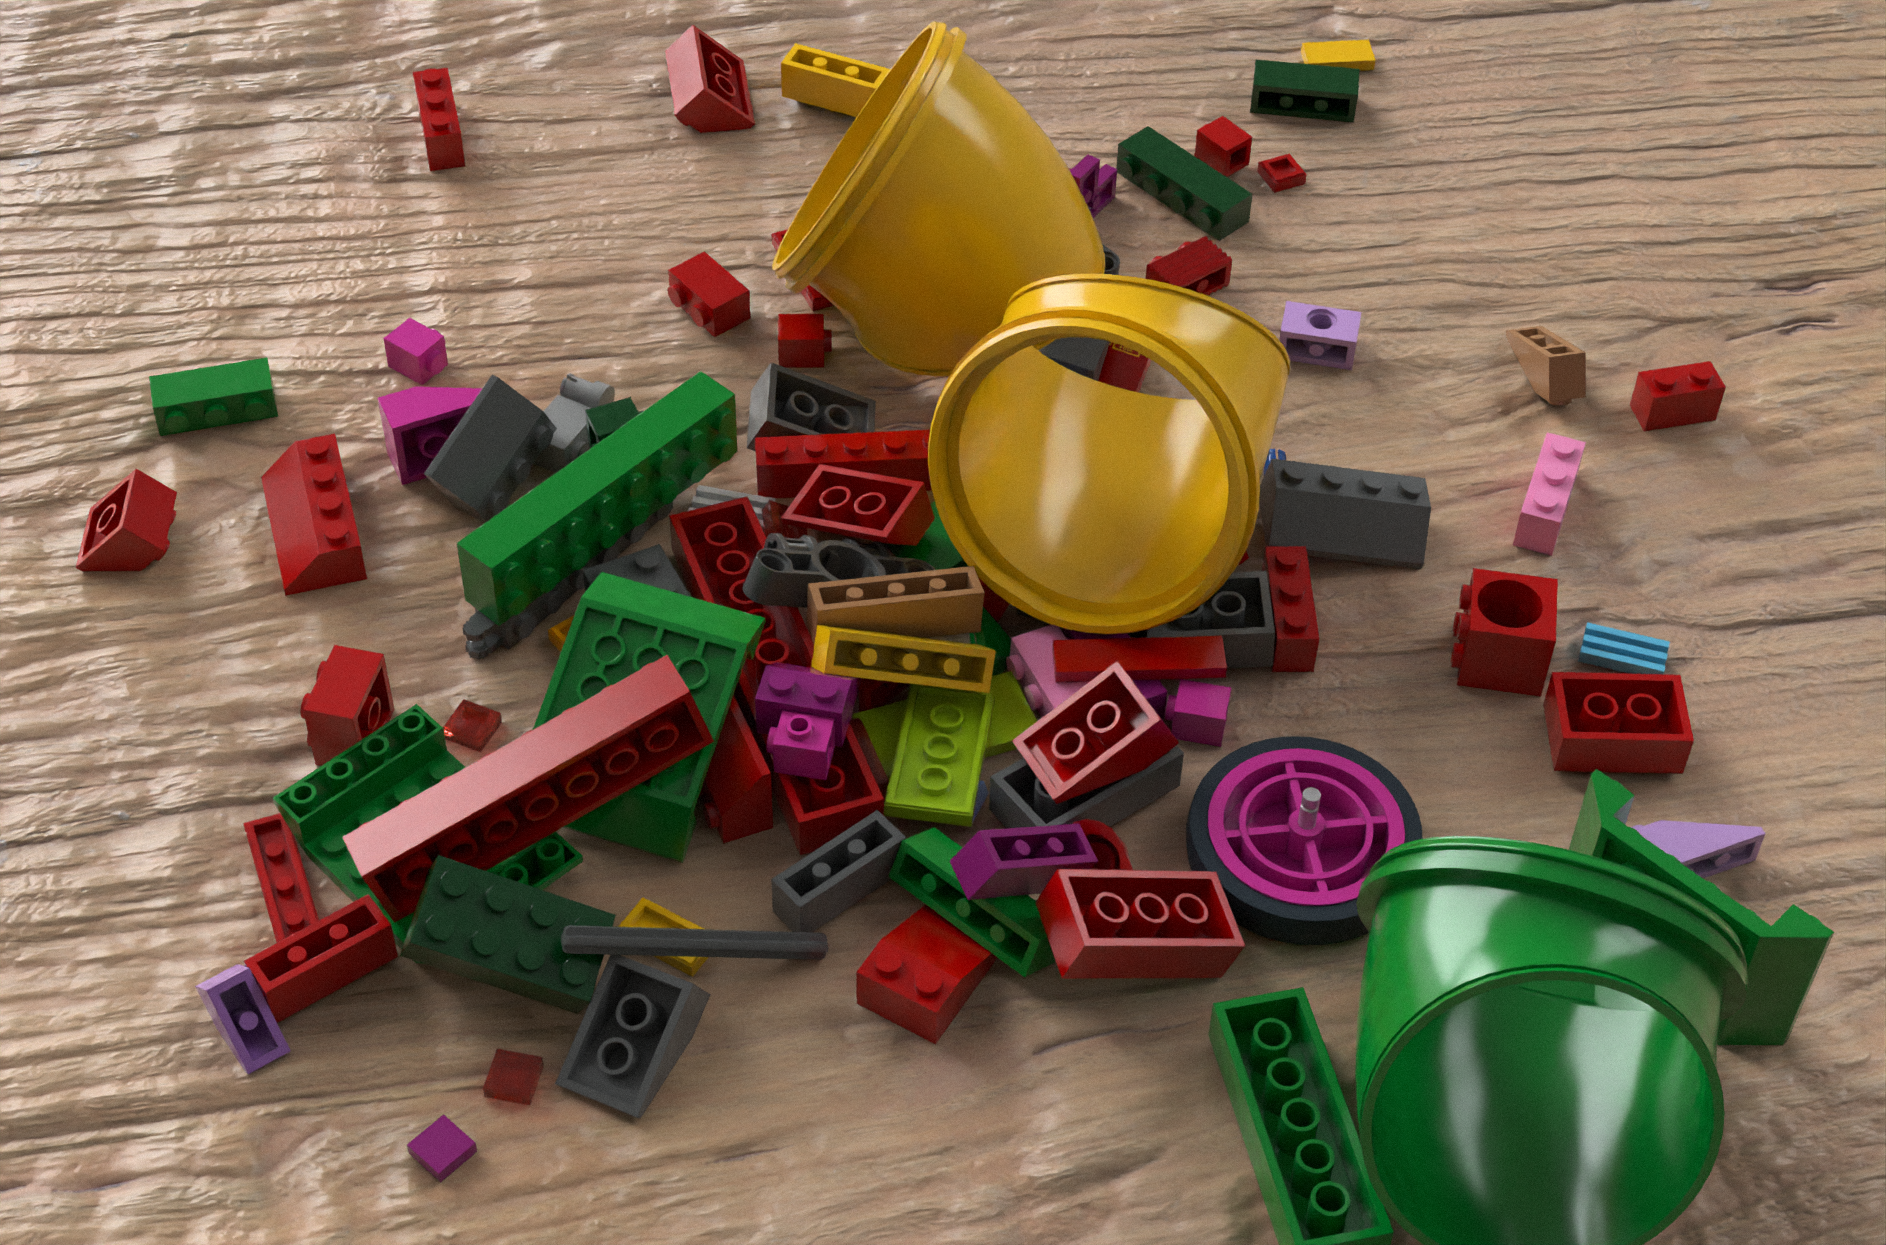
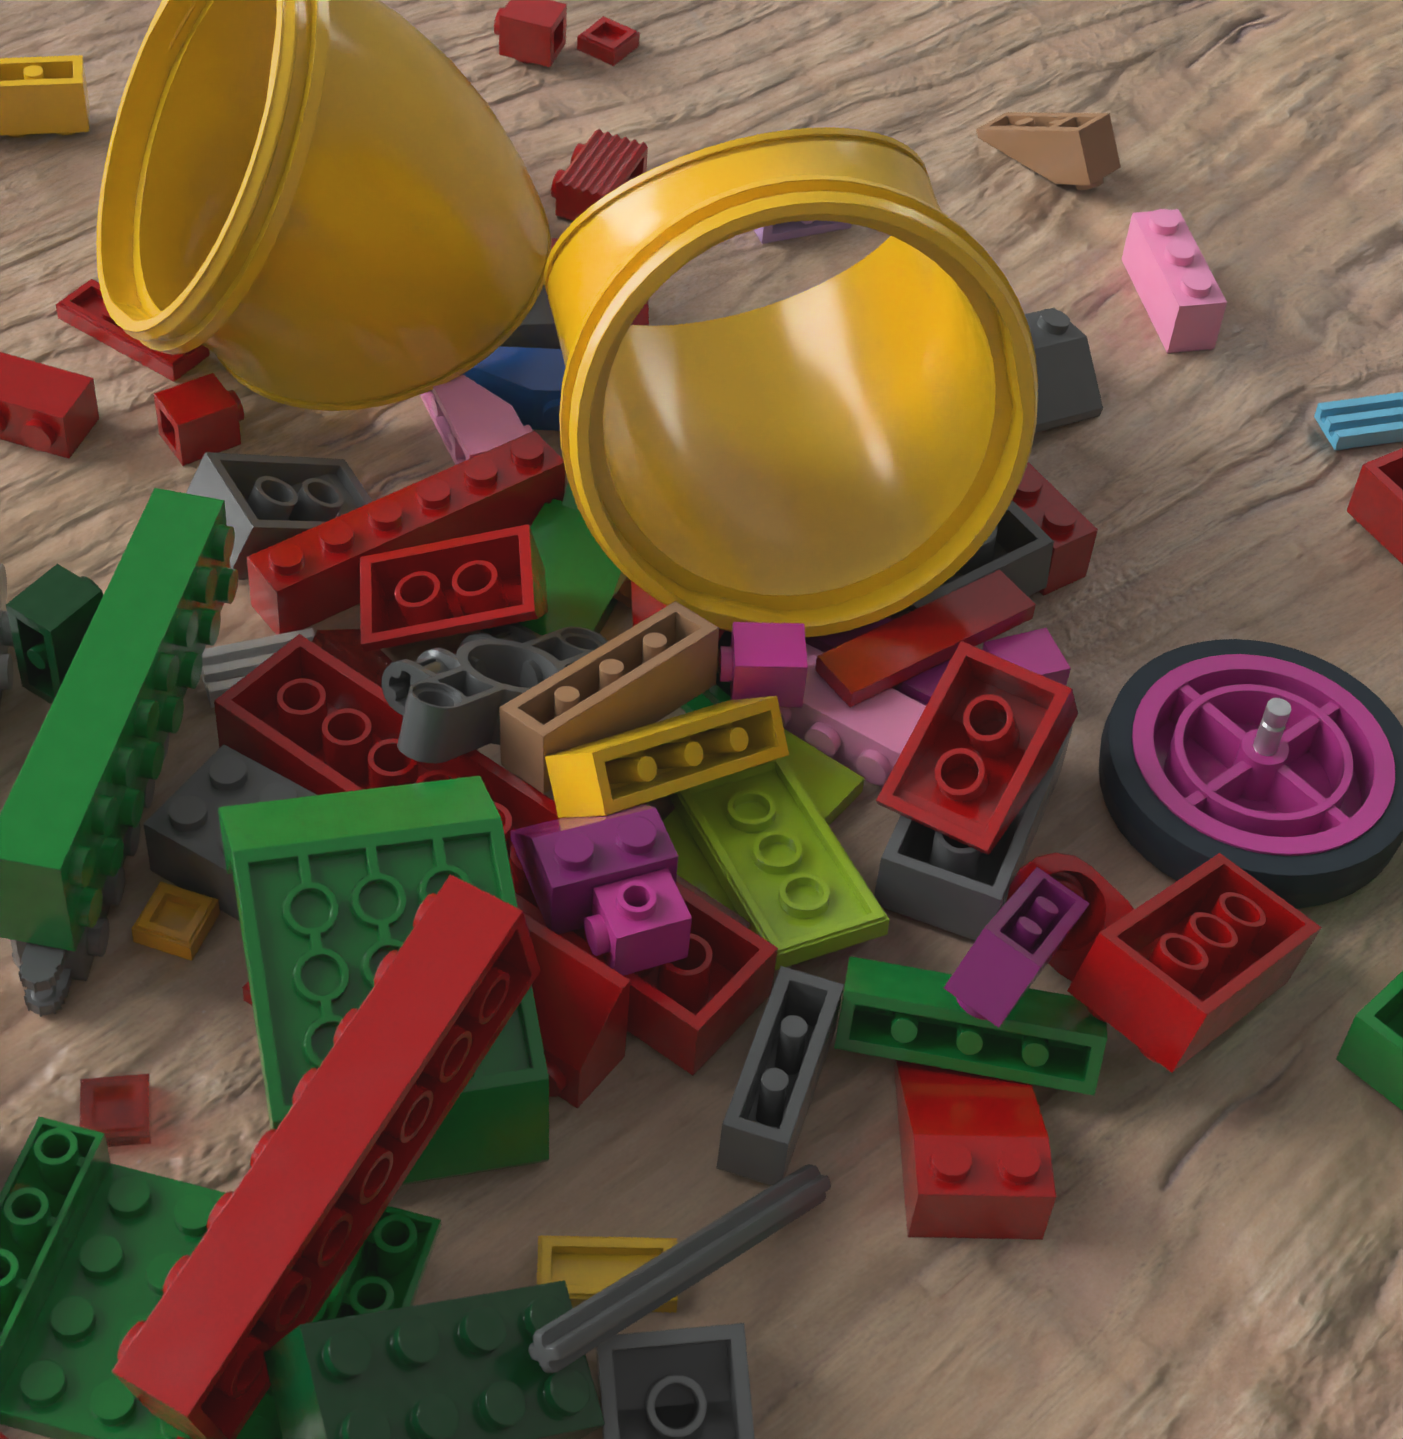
camera: 35 degrees left, 0 degrees up
(1014, 630) = (766, 662): none -> dark pink brick
(1184, 183) = (532, 83): dark green brick -> none
(1505, 632) = (1271, 442): red brick -> none
(1677, 396) = (1206, 134): red brick -> none

